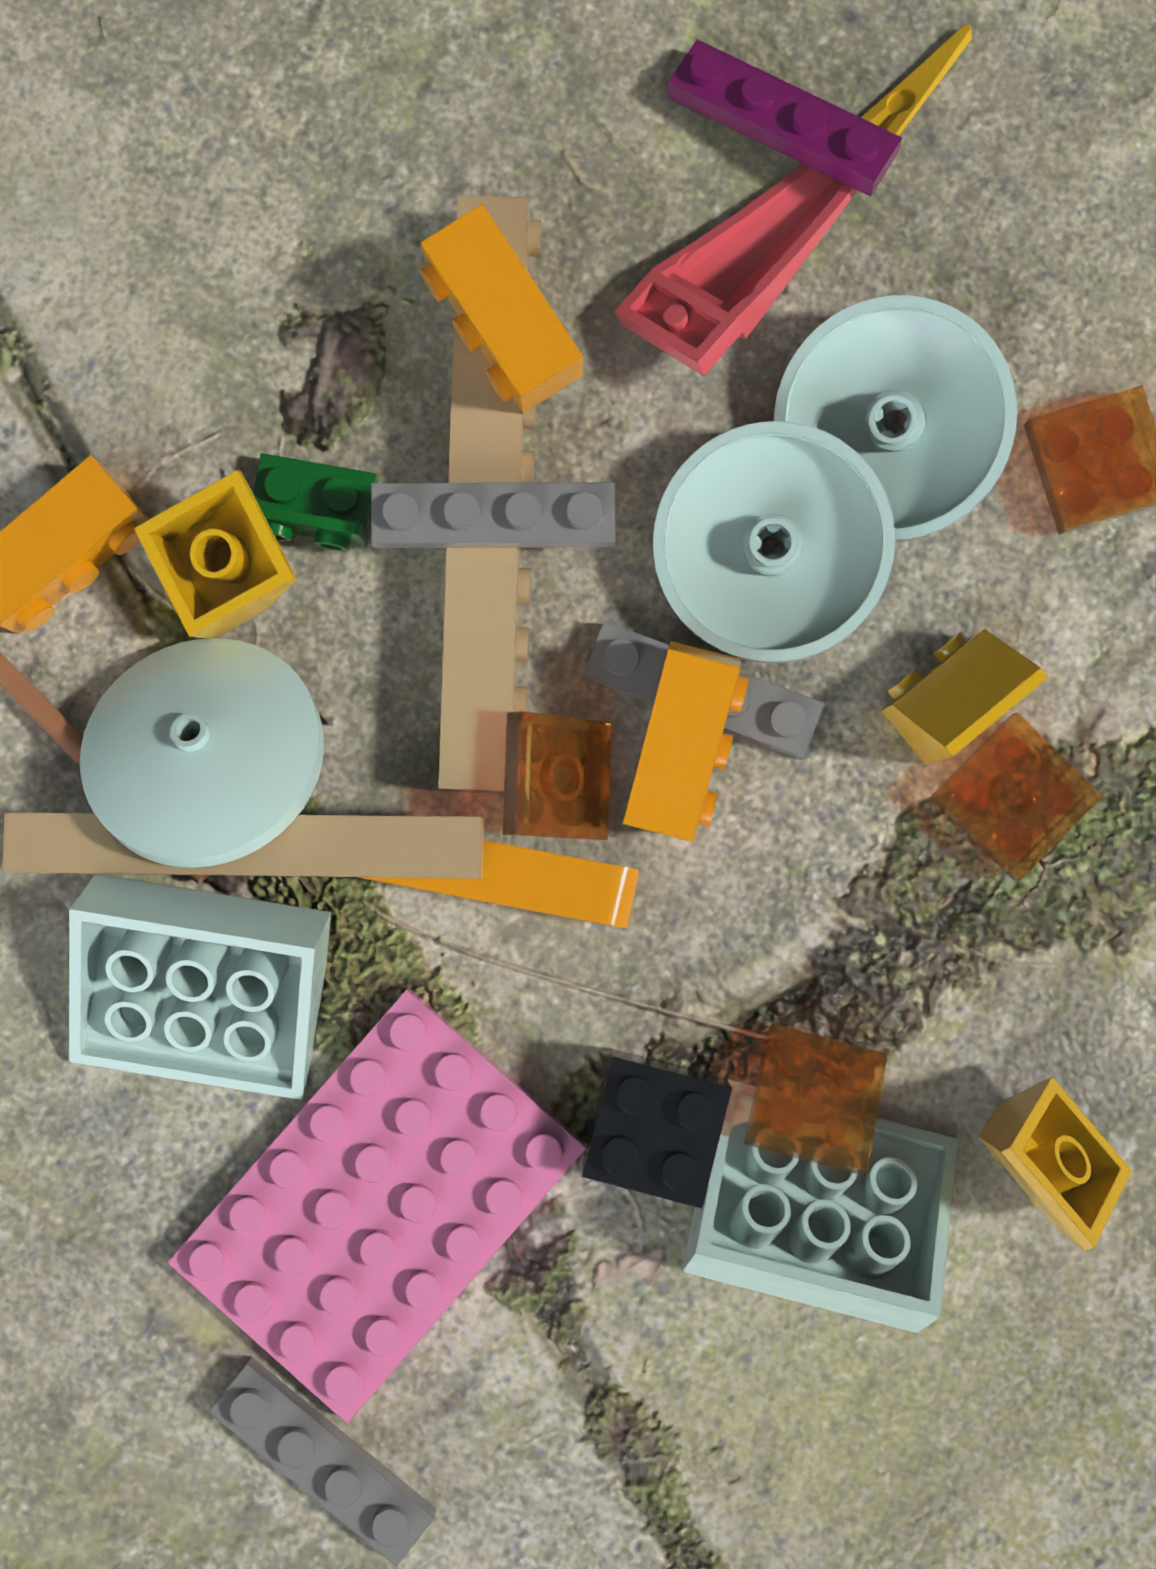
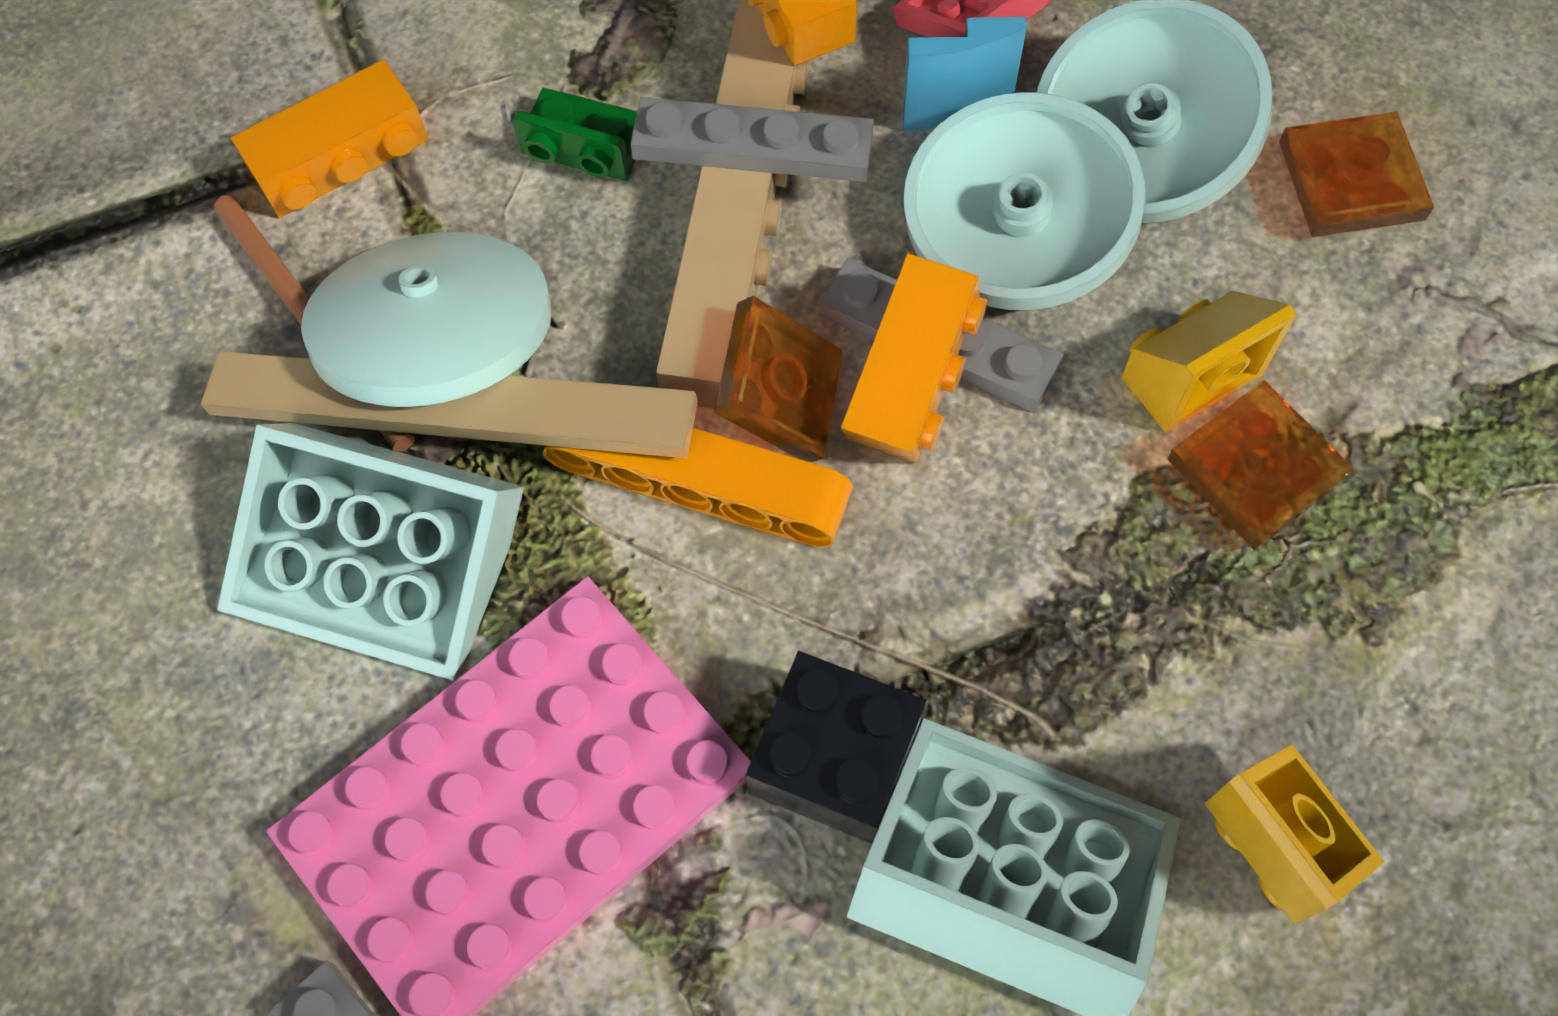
camera: 10 degrees right, 20 degrees down
(217, 557) = (482, 152): yellow slope -> none
(718, 394) = (959, 71): none -> medium azure slope
(816, 1099) = (1021, 744): clear orange plate -> none

